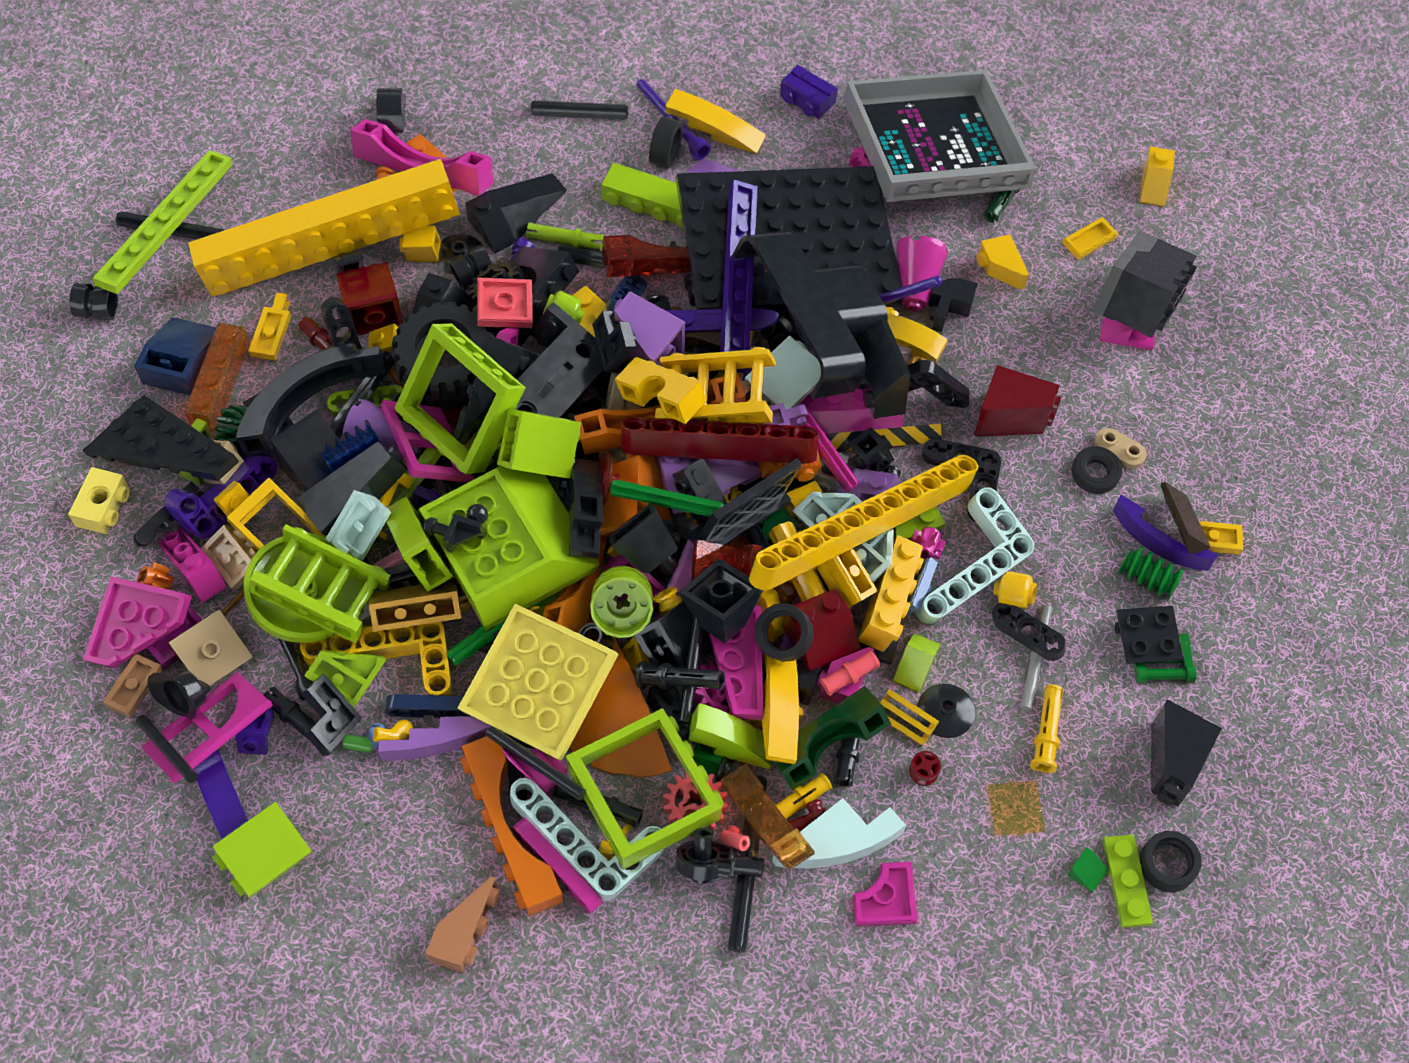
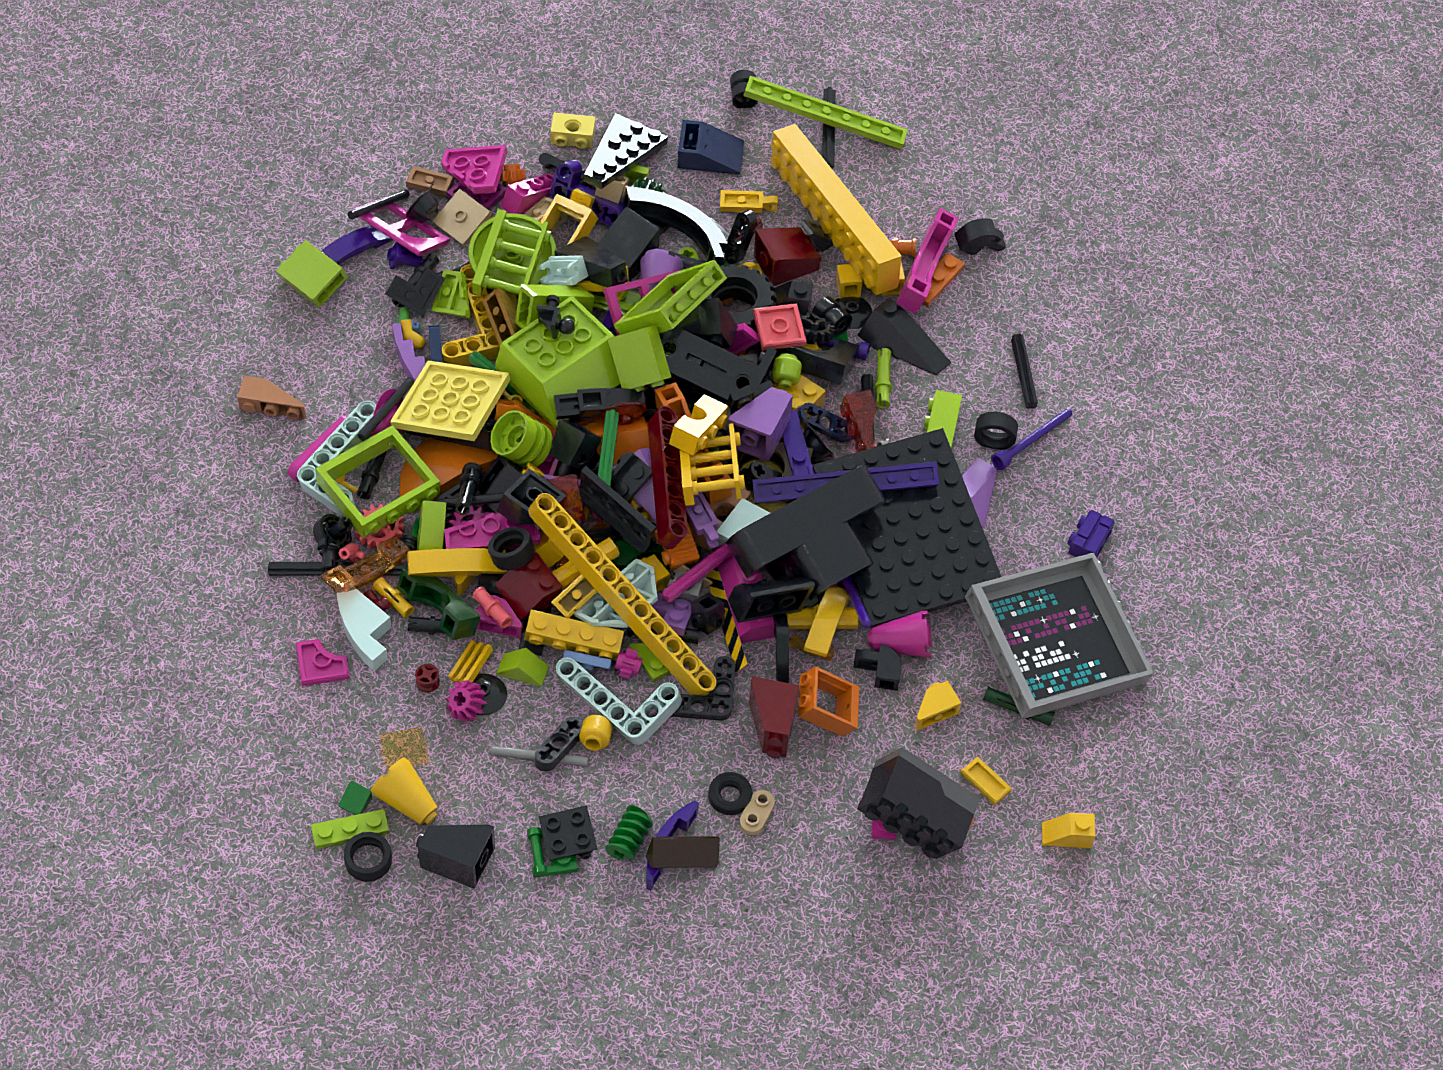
camera: 80 degrees right, 5 degrees down
(218, 374) = (693, 175): clear orange brick -> none
(352, 447) = (636, 260): clear blue piece -> none
(533, 878) = (303, 433): orange arch -> none
(715, 121) = (1034, 468): yellow slope -> none
(978, 725) = (465, 701): none -> dark pink gear
(993, 350) = (847, 696): none -> orange window
(1047, 741) = (463, 764): yellow pin -> none
(1088, 807) = (406, 792): none -> yellow cone
(1223, 537) = (677, 890): yellow plate -> none

